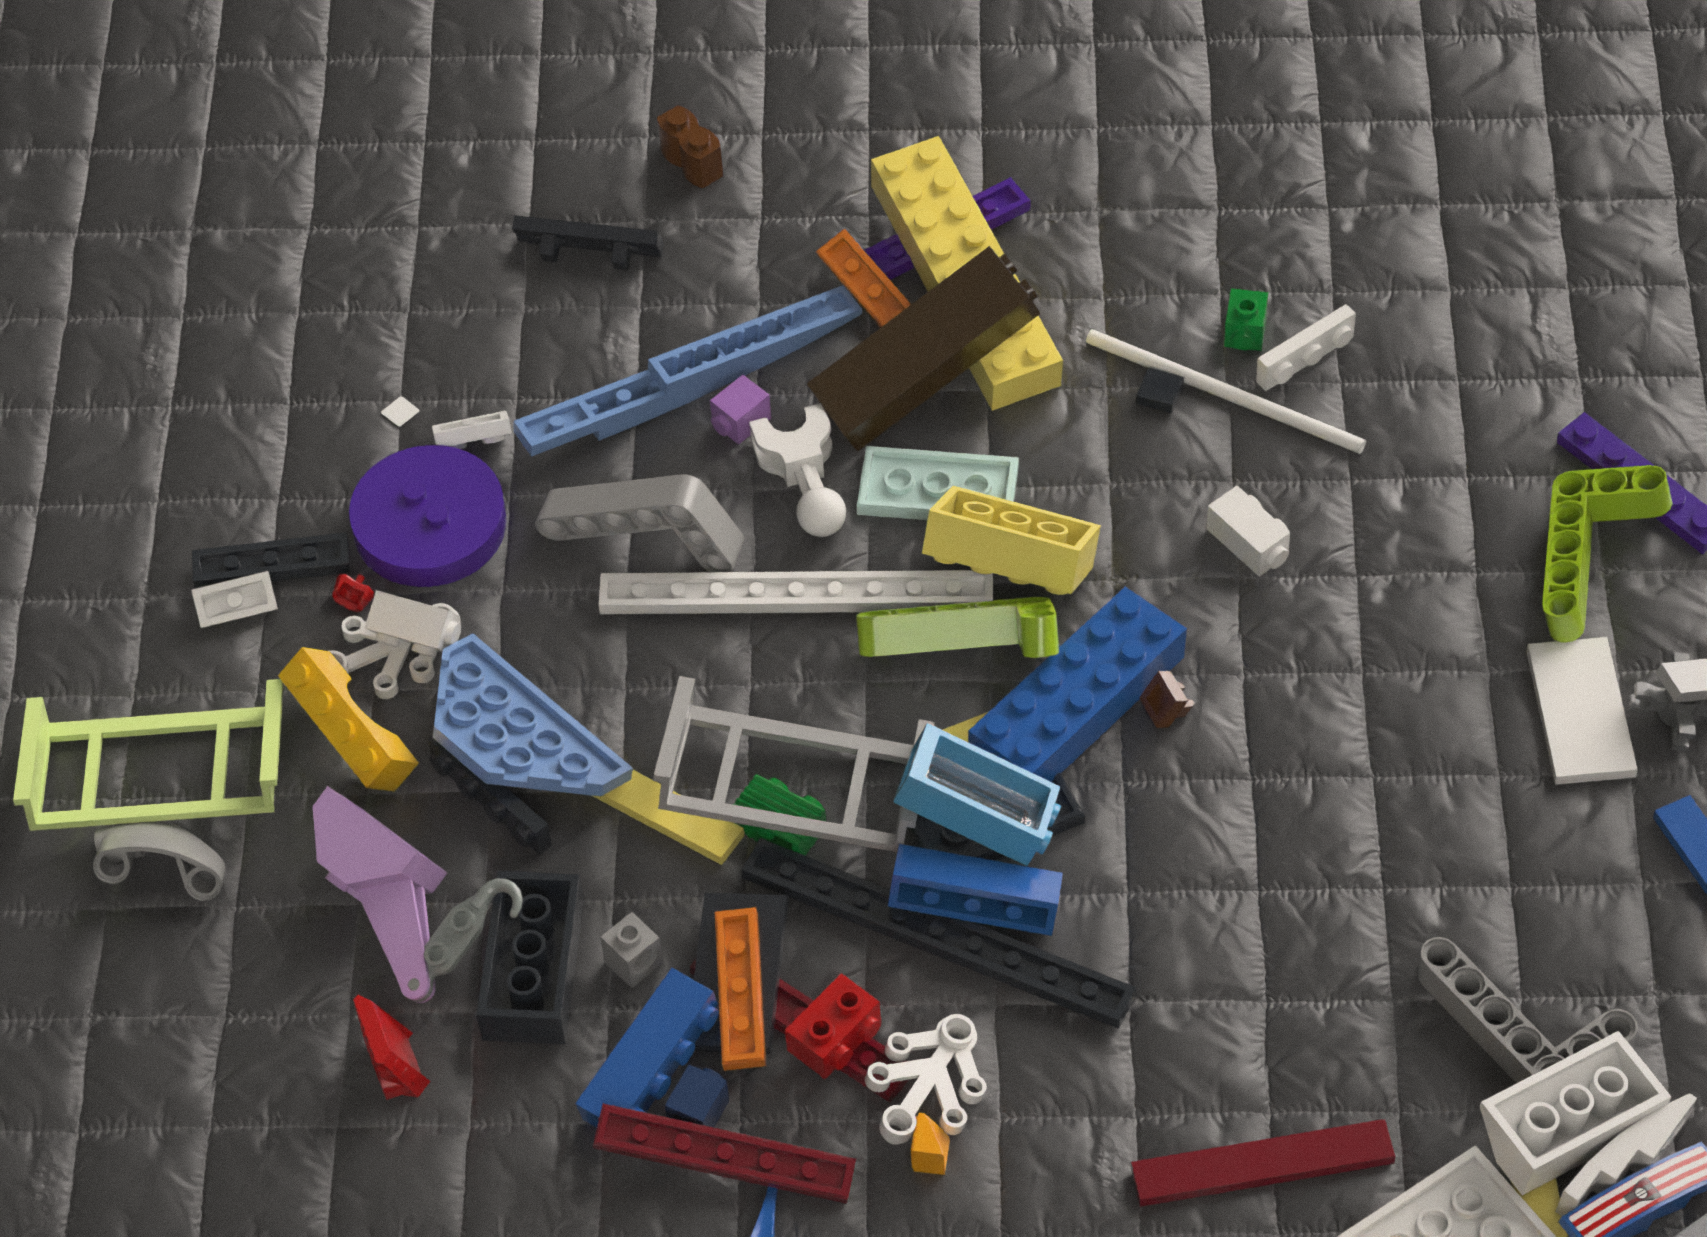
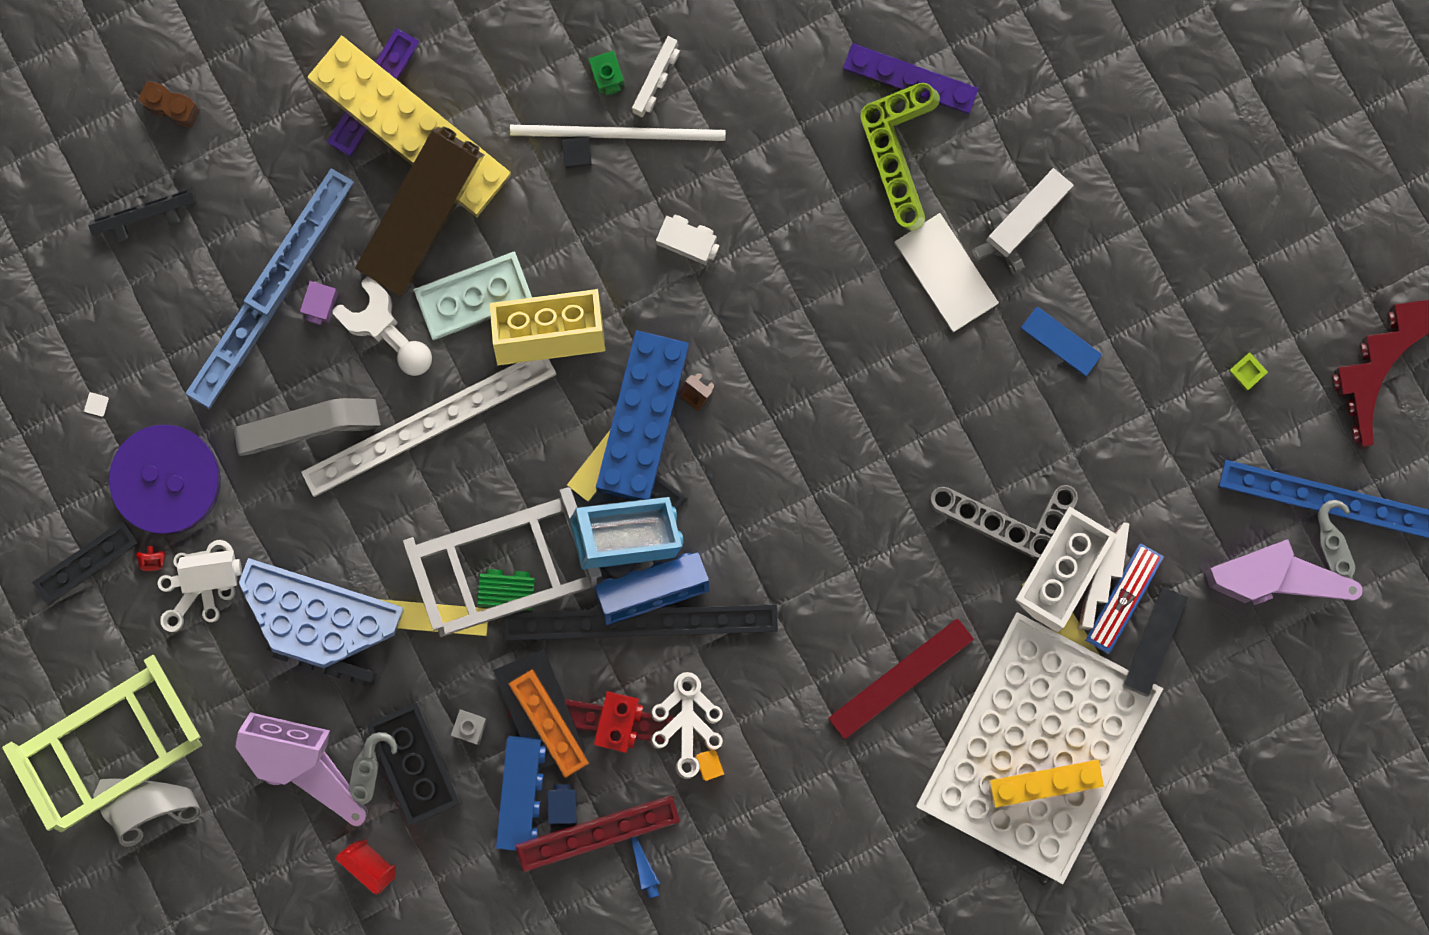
camera: 25 degrees left, 30 degrees up
(234, 599) = (81, 603): white plate -> none
(368, 749) = (234, 674): yellow arch -> none
(487, 427) = (155, 402): white plate -> none
(862, 278) = (354, 165): orange tile -> none
(961, 626) = (550, 400): lime beam -> none

